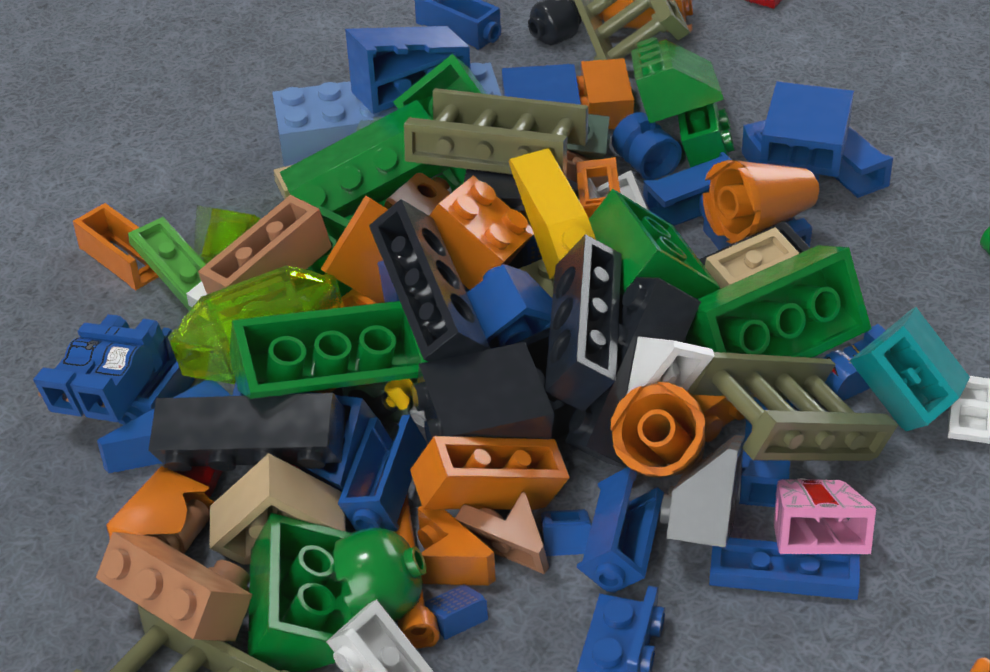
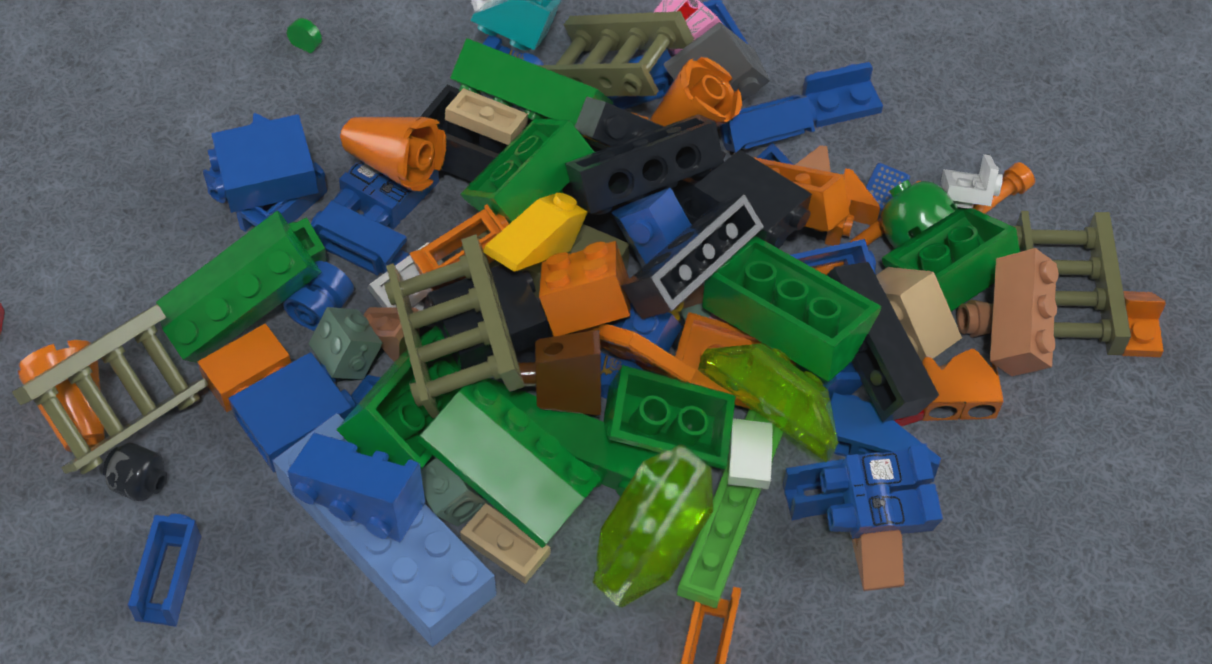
camera: 125 degrees left, 15 degrees up
(285, 236) = (718, 412): nougat brick -> none
(667, 362) = (655, 94): white slope -> none

